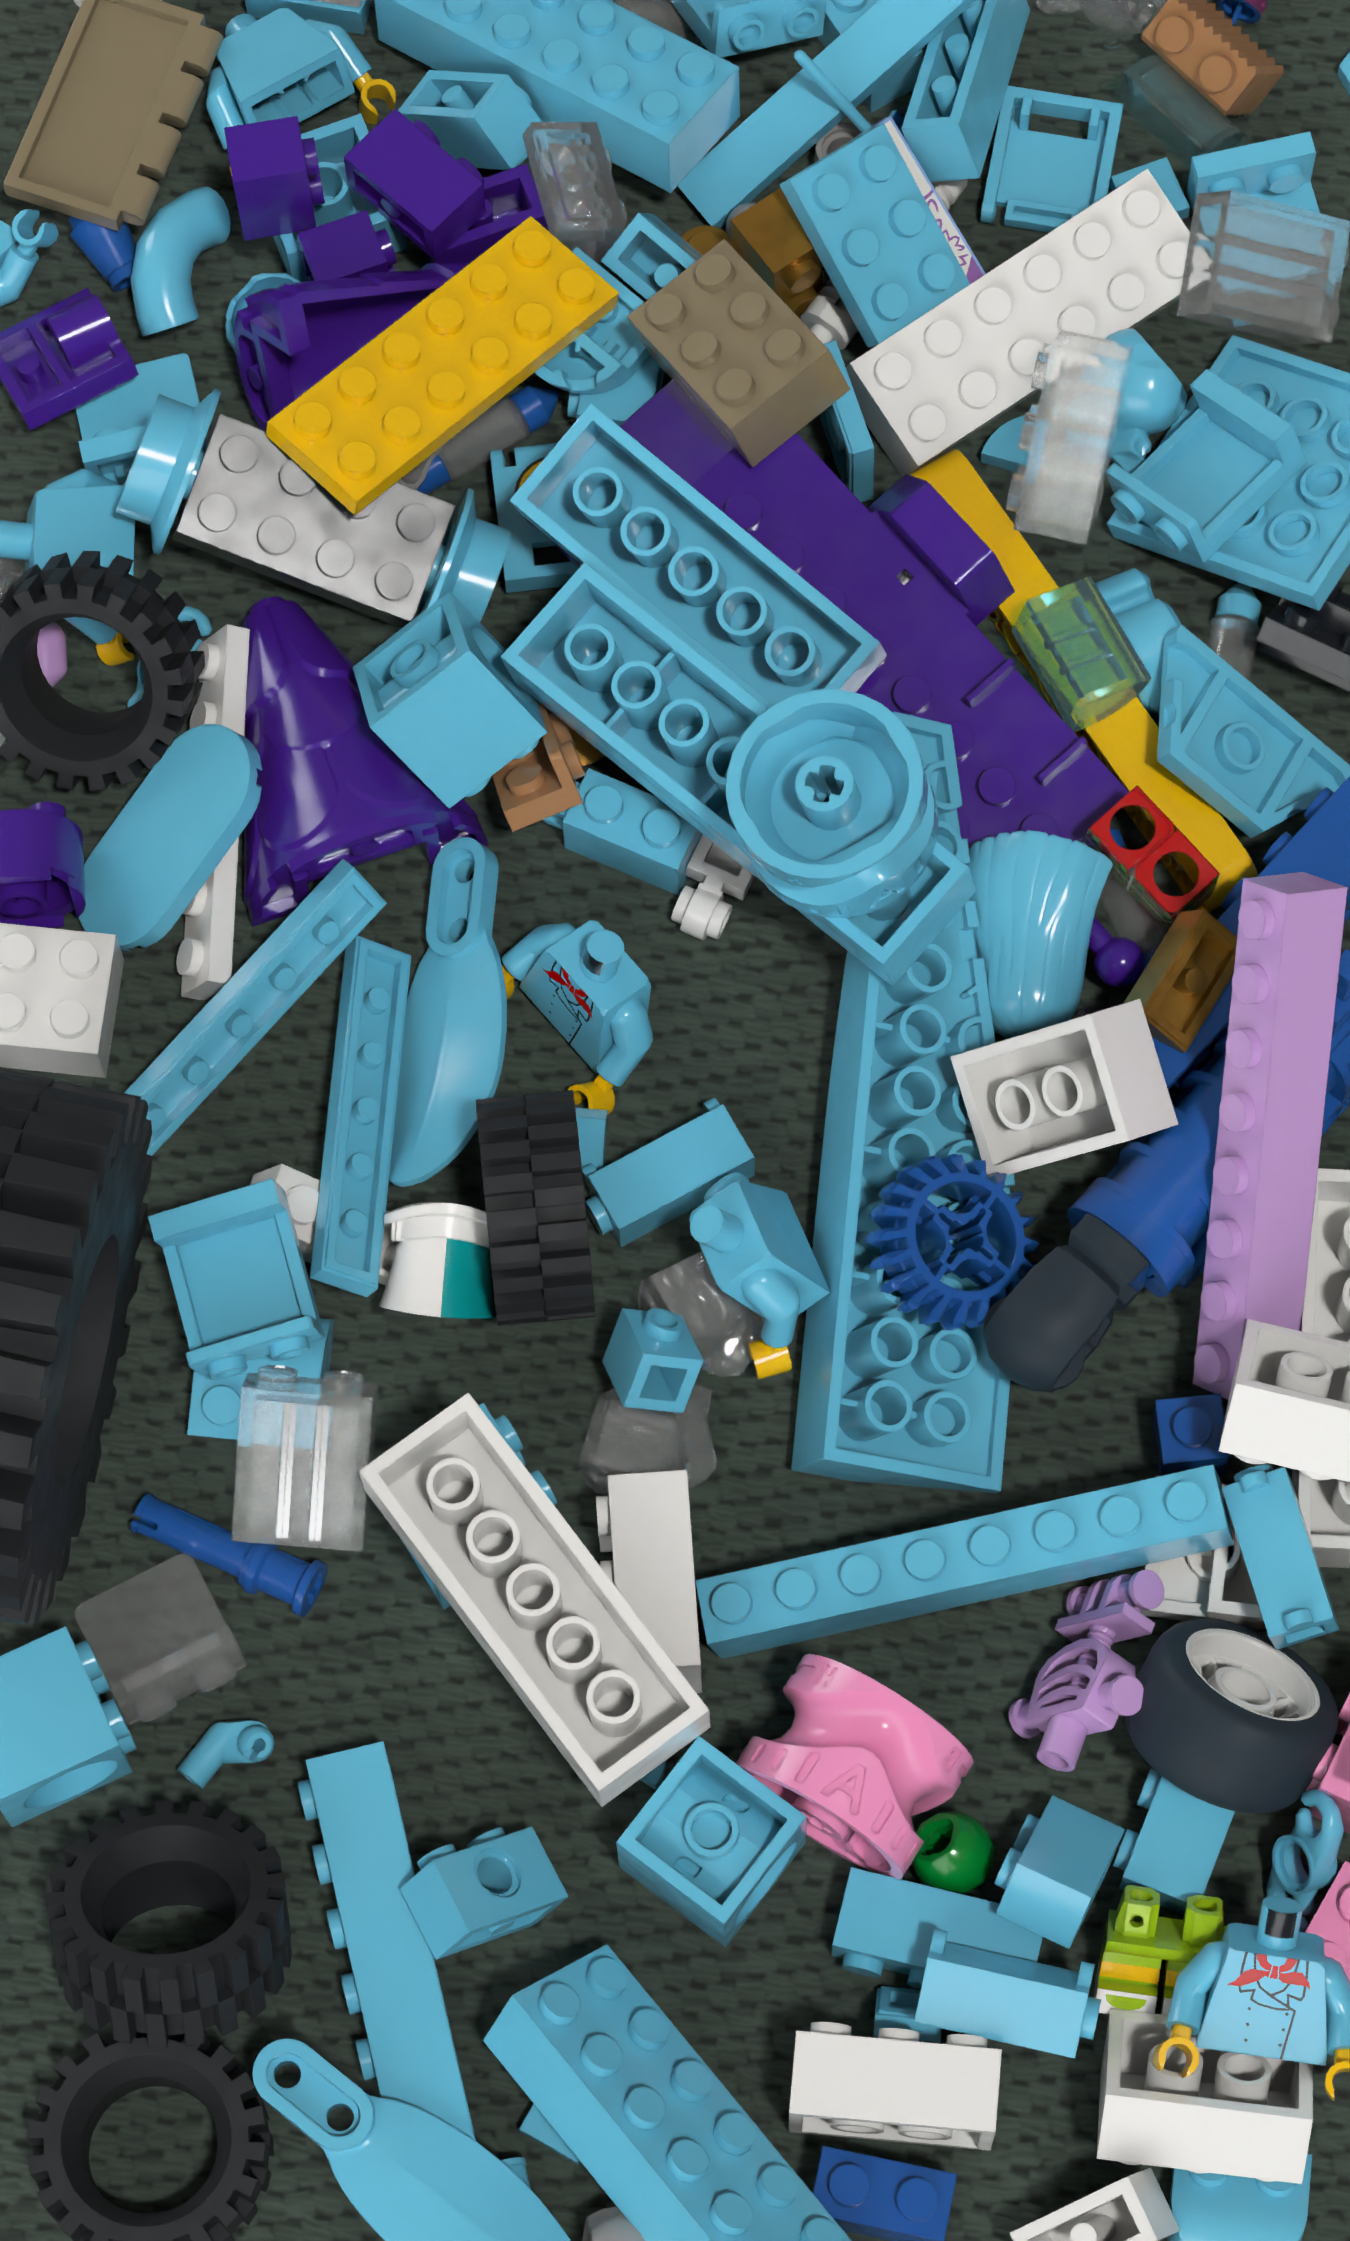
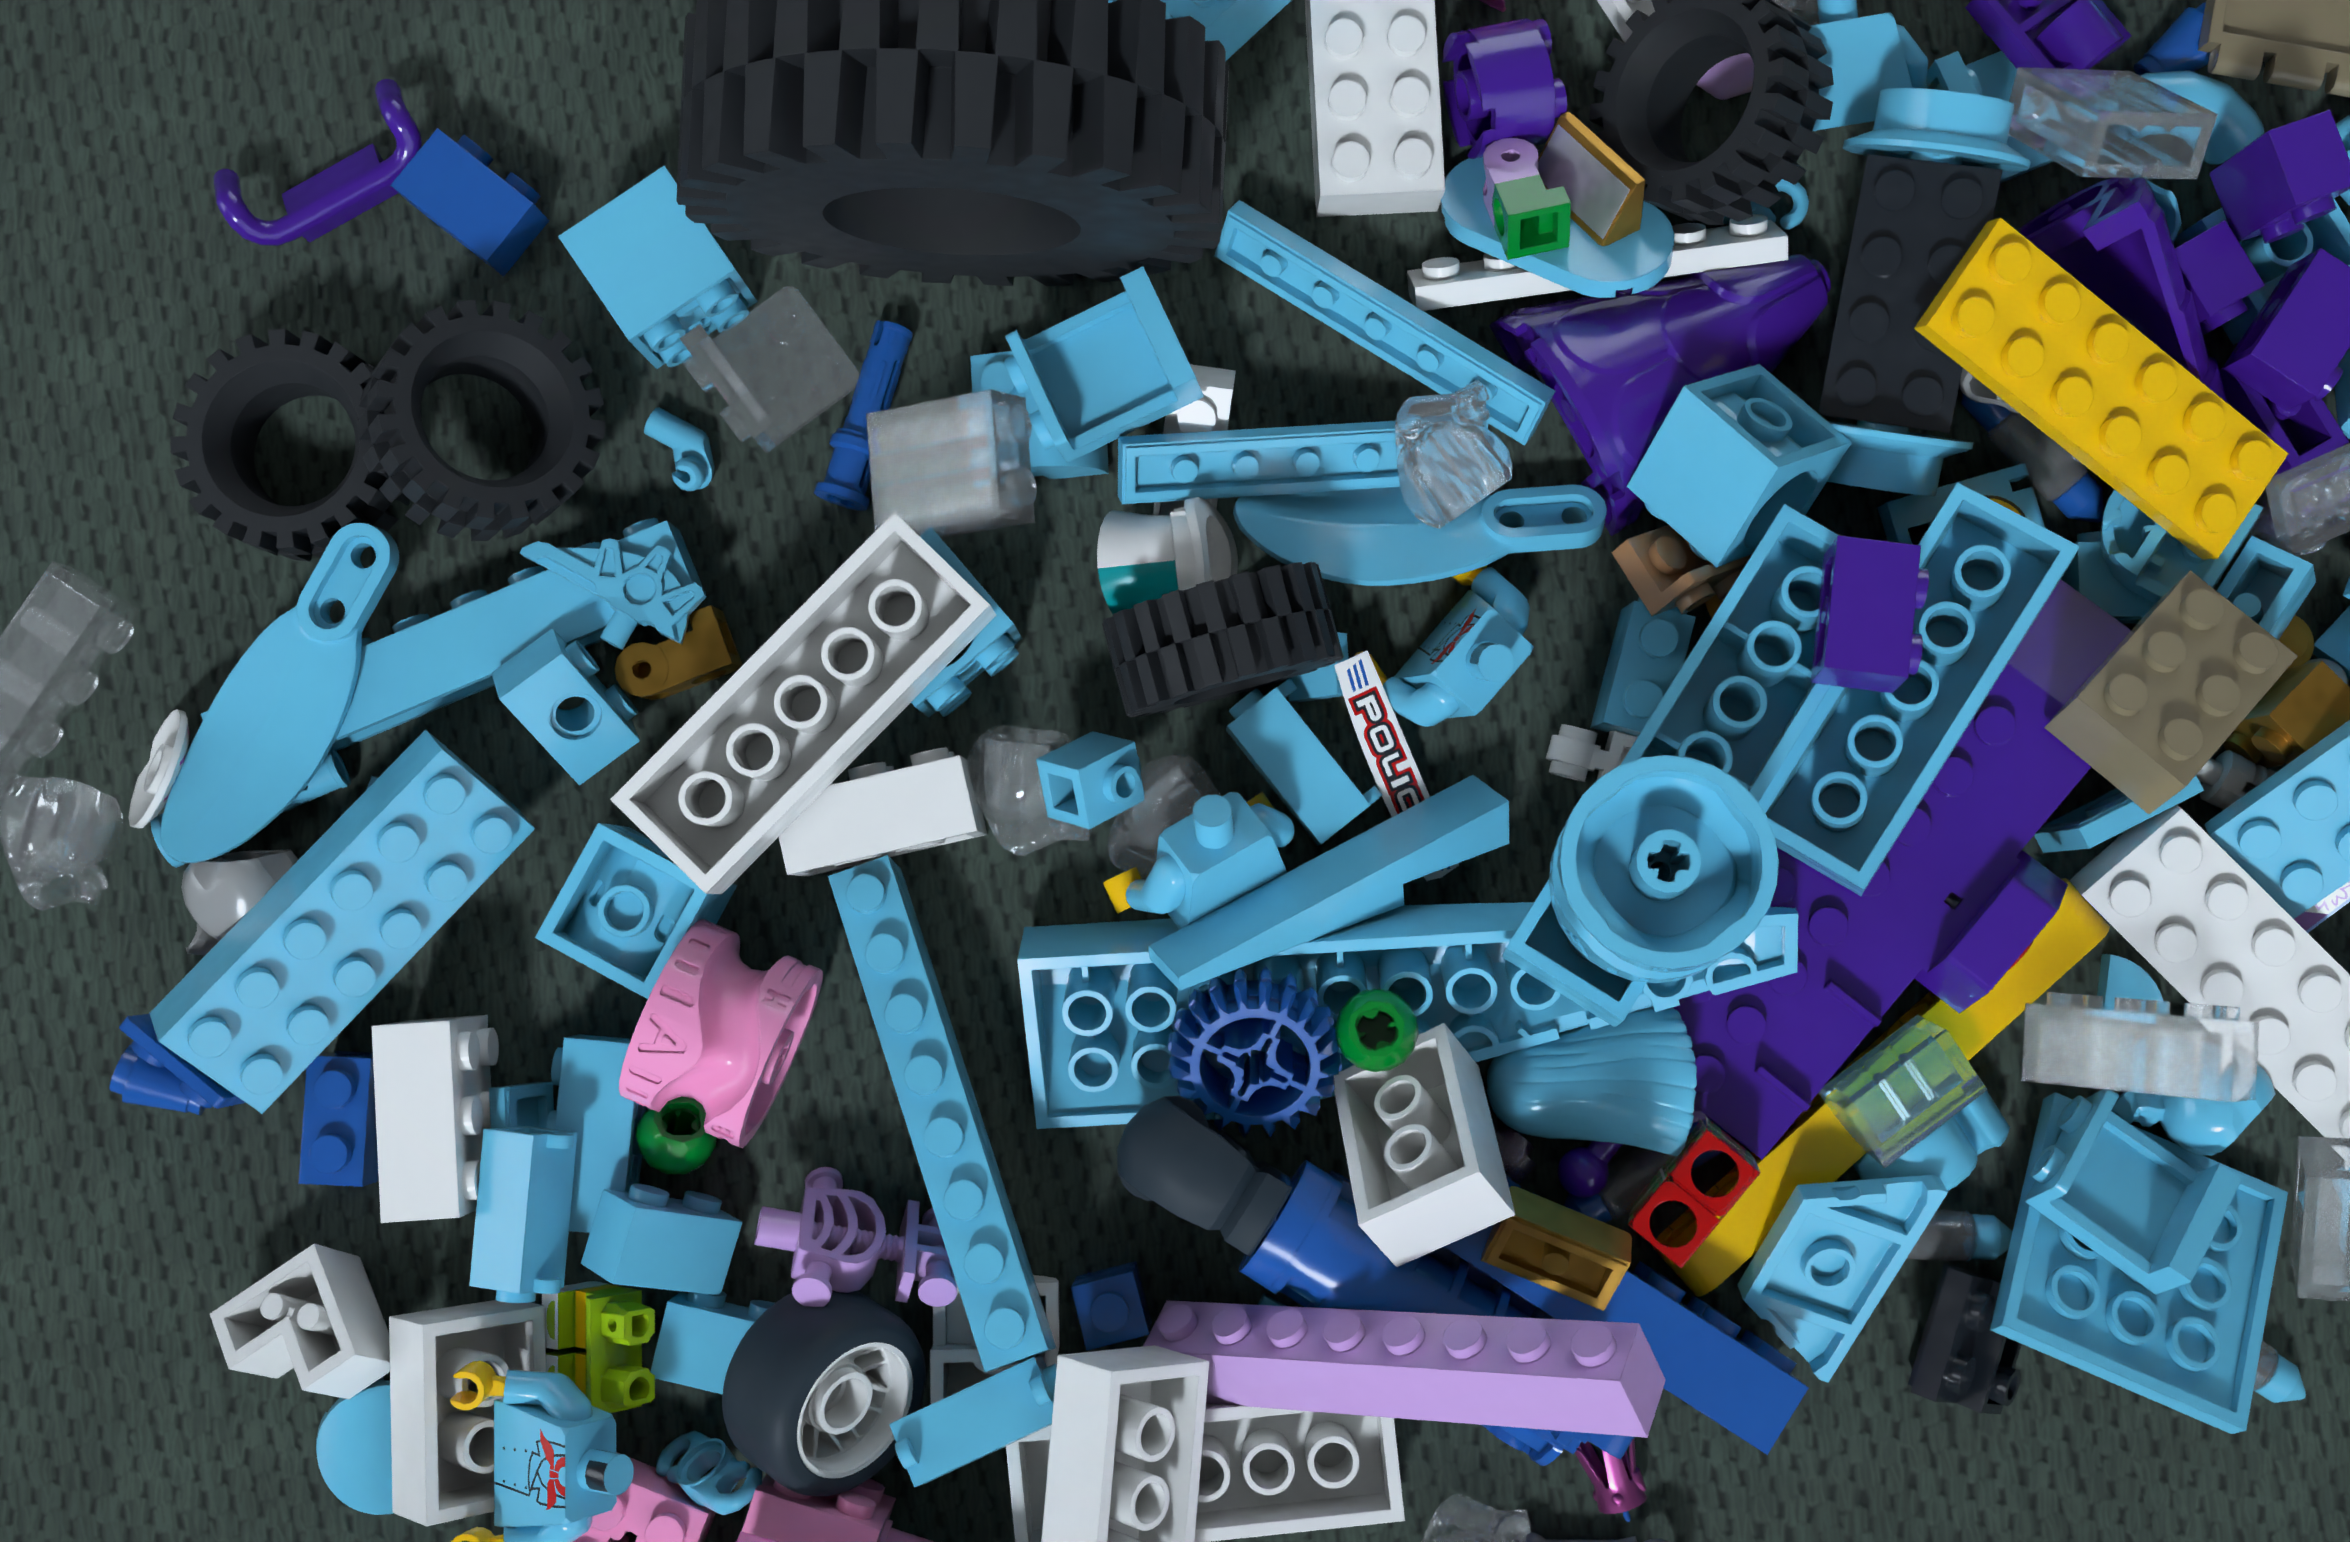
camera: 80 degrees right, 15 degrees up
(138, 795) = (1599, 183): none -> slope
(145, 862) = (1519, 206): none -> green leg
(186, 317) = (2109, 123): none -> clear brick
(370, 1798) = (633, 585): none -> medium azure piece
(389, 970) = (1448, 454): none -> clear piece
(458, 1803) = (673, 667): none -> pearl gold leg
(622, 593) = (1869, 614): none -> dark purple brick
(688, 1081) = (1382, 738): none -> sticker
(798, 1138) = (1339, 885): none -> medium azure slope
(947, 1117) = (1376, 1030): none -> green piece

